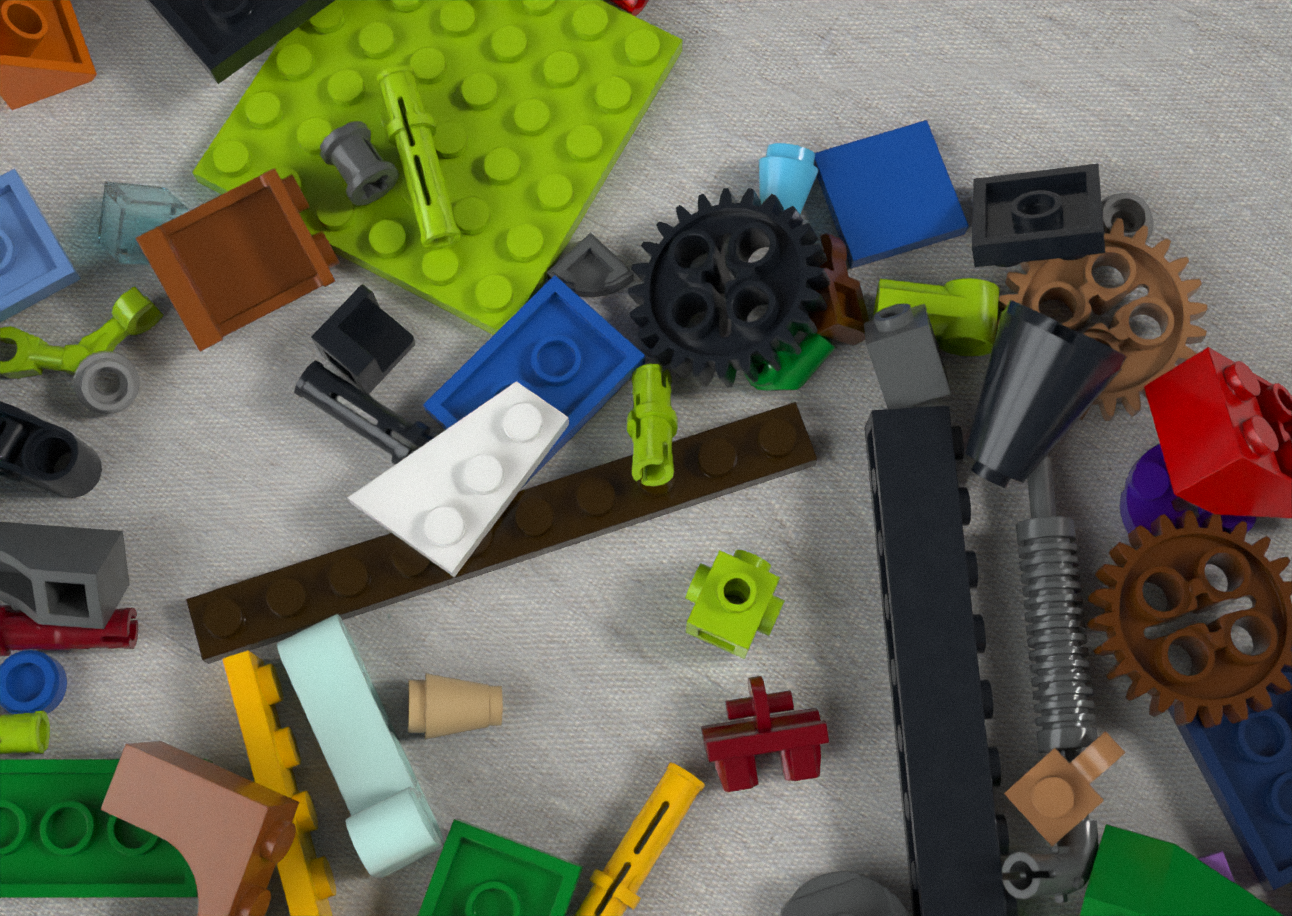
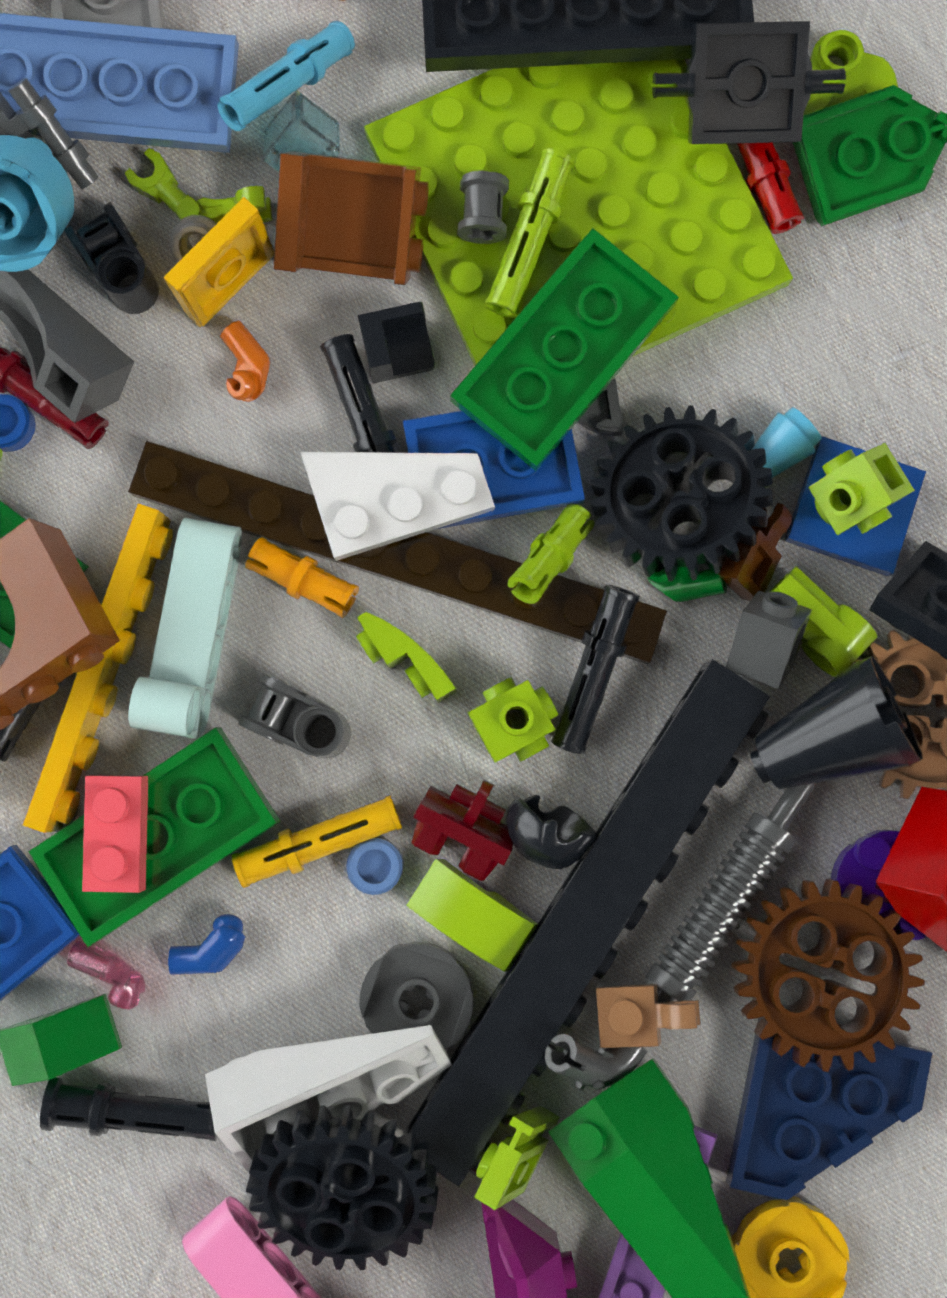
camera: 35 degrees right, 10 degrees up
(95, 155) = (302, 65): none -> medium azure pin
(145, 380) = (221, 263): none -> yellow tile
(238, 456) = (251, 365): none -> orange arm
(431, 618) = (302, 577): none -> light orange pin
(452, 706) = (271, 647): tan cone -> none
(521, 758) = (287, 717): none -> dark grey piece
(526, 237) = (564, 349): none -> green plate
(566, 617) = (394, 646): none -> lime slope
(706, 843) = (375, 866): none -> medium blue tile
(772, 499) = (595, 668): none -> black pin
(834, 817) = (472, 916): none -> lime slope
(852, 686) = (548, 838): none -> black hair
(883, 170) = (860, 489): none -> lime brick

